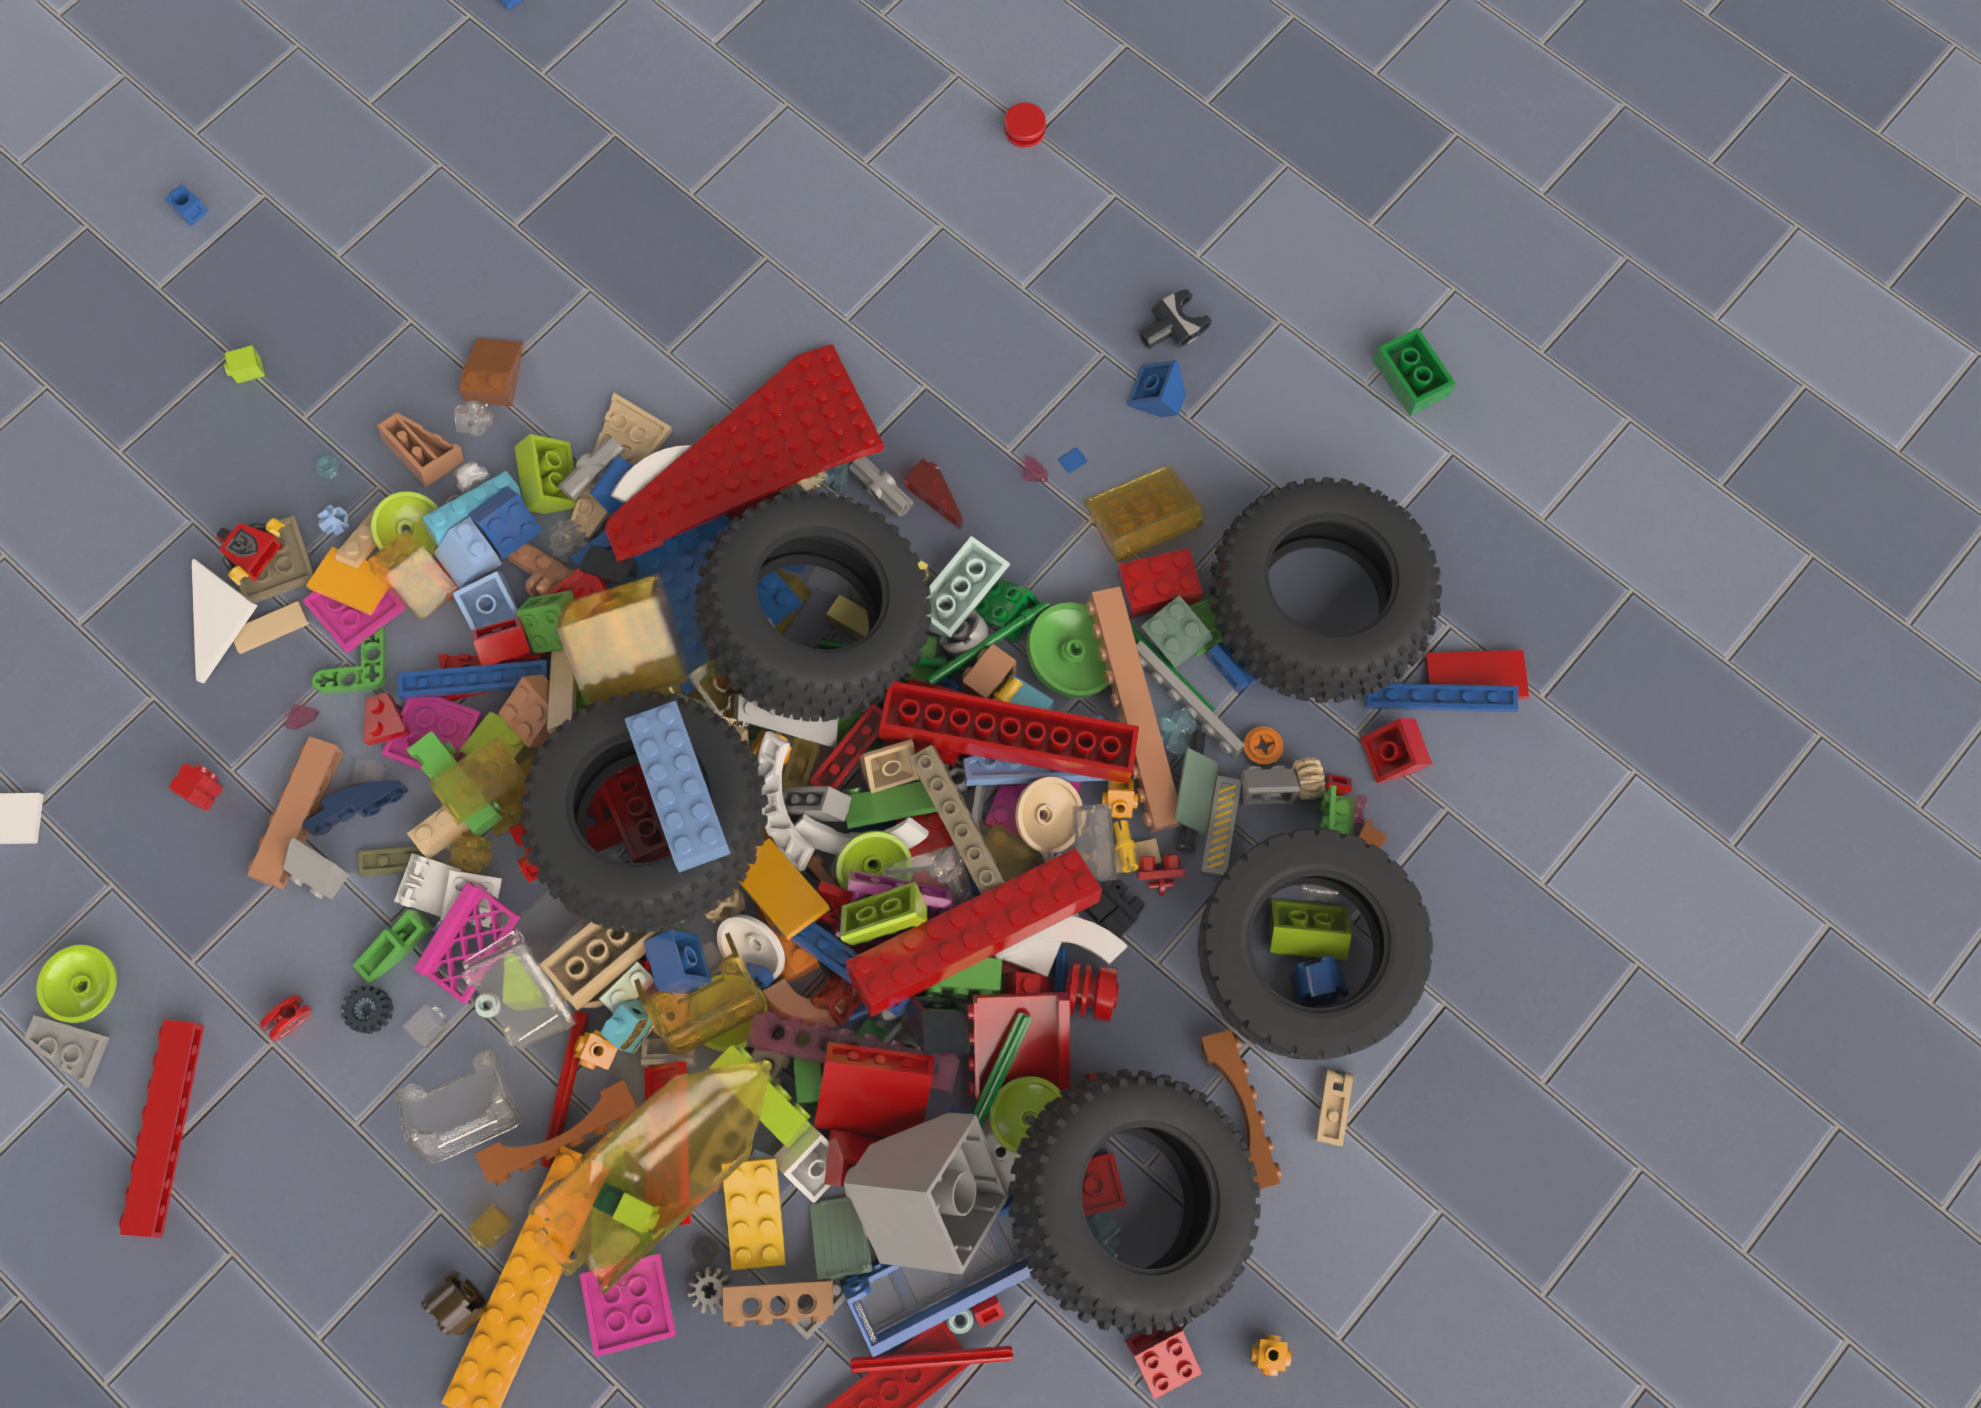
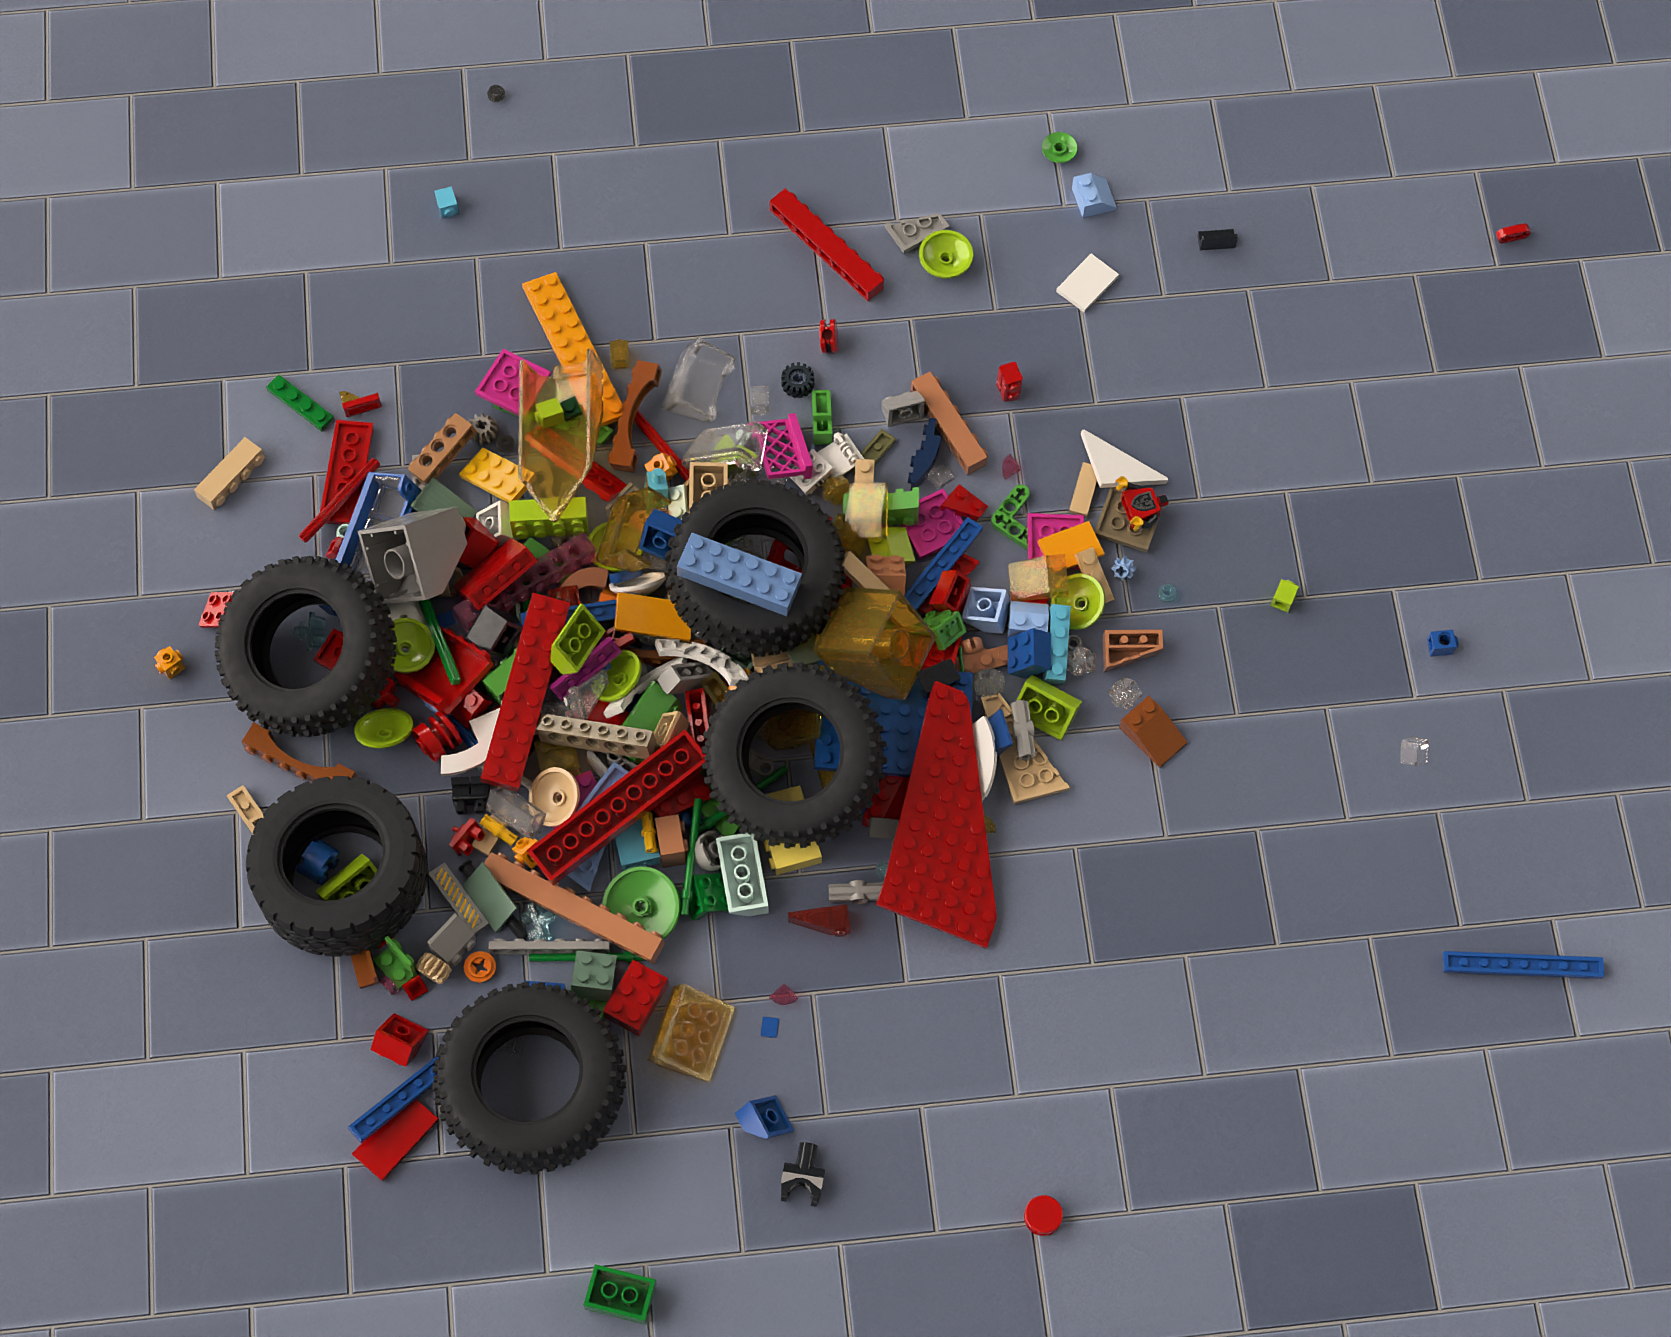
camera: 130 degrees right, 5 degrees down
(323, 153) = (1414, 751): none -> clear panel
(454, 1304) = (596, 308): dark brown brick -> none
(1115, 1047) = (384, 728): none -> lime dish

